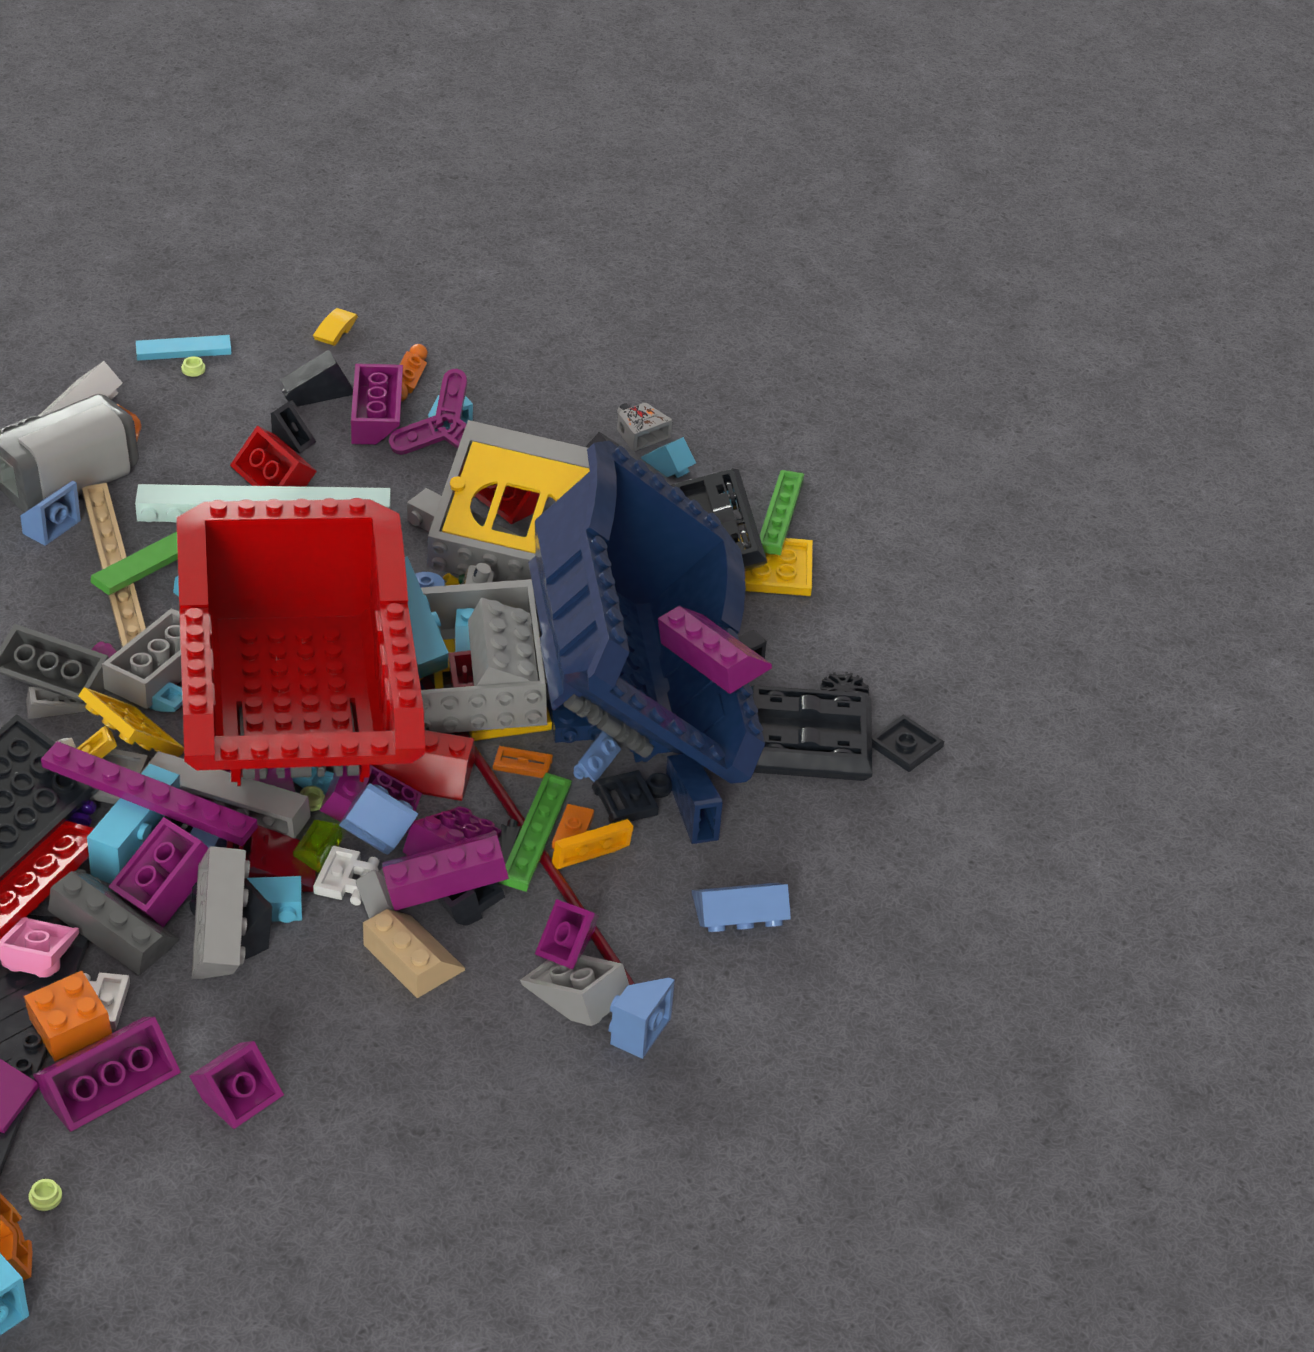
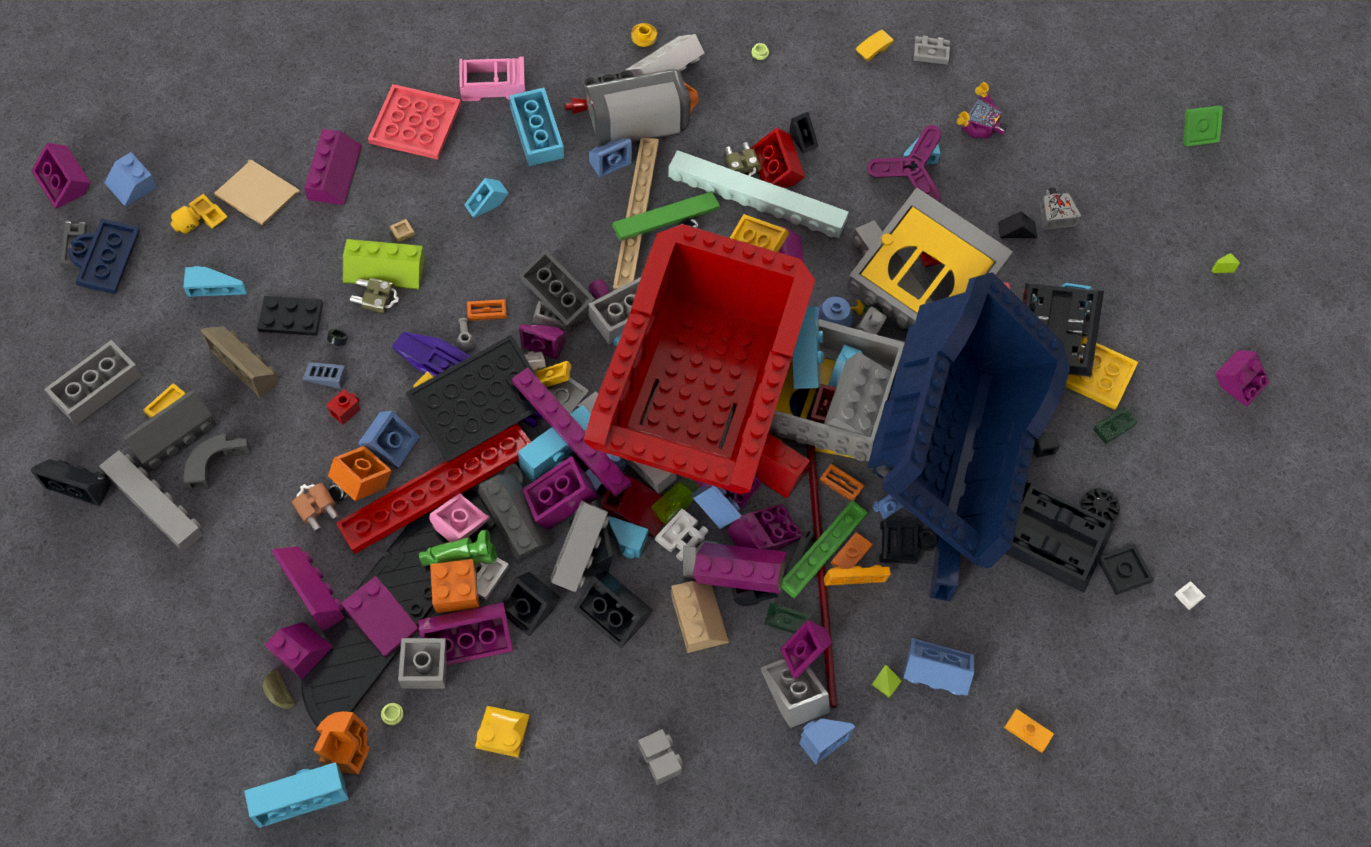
camera: 25 degrees right, 20 degrees up
(32, 385) = (644, 35): none -> yellow plate
(55, 969) = (481, 551): none -> bright green piece
(57, 721) = (542, 339): none -> magenta slope
(65, 1118) = (423, 663): none -> light grey slope
(130, 722) = (586, 356): yellow plate -> none
(180, 1007) = (529, 602): none -> black slope
(183, 347) = (761, 31): medium azure tile -> none
(211, 1163) = (502, 731): none -> yellow slope
(232, 475) = (743, 163): none -> olive piece
(237, 1084) = (541, 678): magenta slope -> none
(294, 979) = (613, 608): none -> black slope
(316, 382) = (839, 95): black slope -> none
(375, 402) = (871, 128): magenta slope -> none
(408, 314) = (931, 50): none -> light grey plate
(413, 366) = (908, 105): orange plate -> none
(434, 1104) = (658, 753): none -> light grey piece
(504, 360) = (983, 116): none -> torso
(524, 918) = (785, 618): none -> clear green plate
(671, 458) = (1065, 249): medium azure slope -> none
(685, 942) = (886, 681): none -> lime slope
(710, 649) = (1005, 457): magenta slope -> none
(764, 302) = (1202, 125): none -> bright green tile
(781, 511) = (1126, 327): bright green tile -> none
(819, 609) = (1115, 425): none -> clear green plate
(860, 424) = (1226, 264): none -> lime slope
(881, 934) = (1029, 730): none -> light orange plate
(937, 520) = (1243, 376): none -> magenta slope
(992, 744) = (1189, 595): none -> white tile

